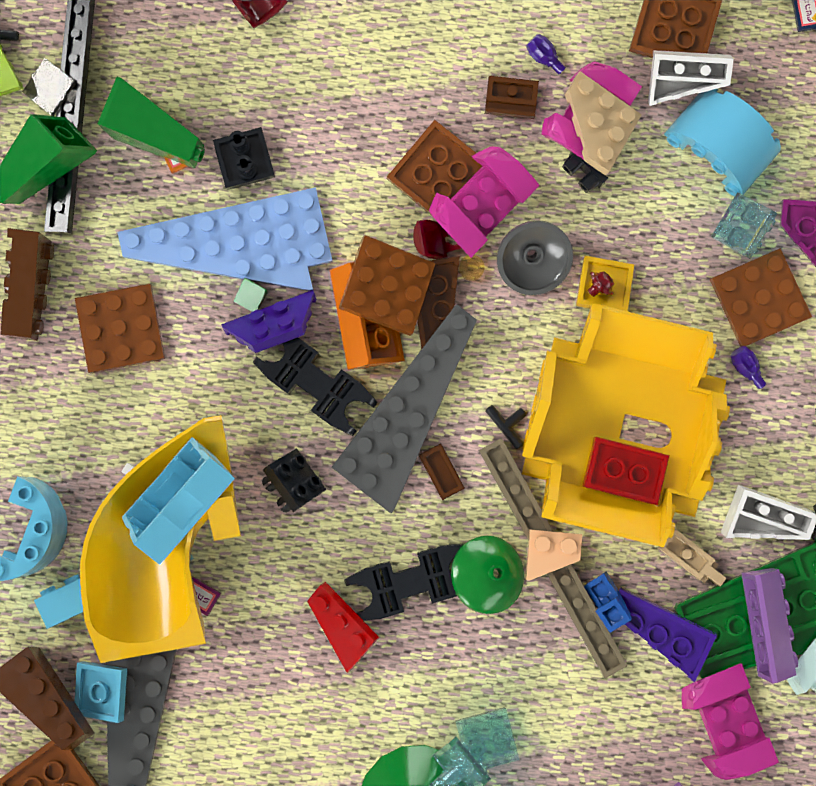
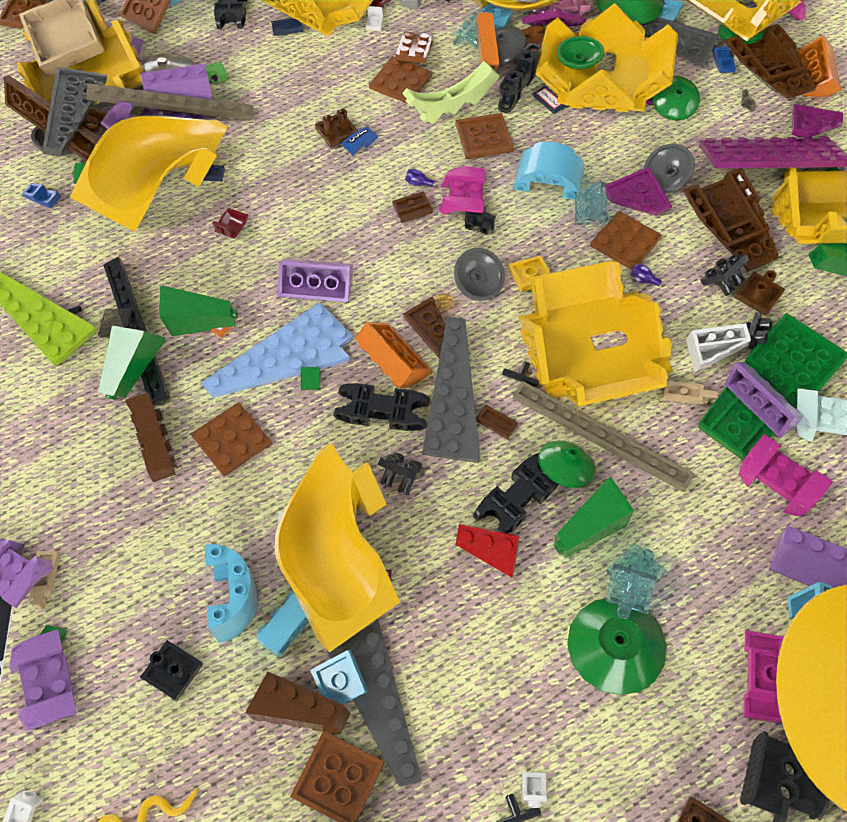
camera: 20 degrees left, 25 degrees down
(176, 500) = (330, 491): medium azure tile -> none
(243, 158) = (264, 305): black plate -> none
(273, 324) = (333, 386): dark purple wing -> none
(326, 150) = (315, 280): none -> medium lavender slope
(387, 285) = (397, 325): dark orange plate -> none
(431, 241) = (410, 296): dark red piece -> none
(433, 166) = (392, 261): dark orange plate -> none
(476, 661) = (598, 518): none -> green slope
(483, 199) = (429, 258): dark pink piece -> none
(551, 551) = (598, 428): light nougat wing -> none
(600, 121) = (476, 189): tan plate -> none
(601, 283) = (528, 267): dark red plant -> none
(609, 602) = (655, 441): blue slope -> none
(625, 471) = (612, 363): red tile -> none
(674, 636) = (709, 439): dark purple wing -> none
(686, 74) = (506, 148): white wedge -> none

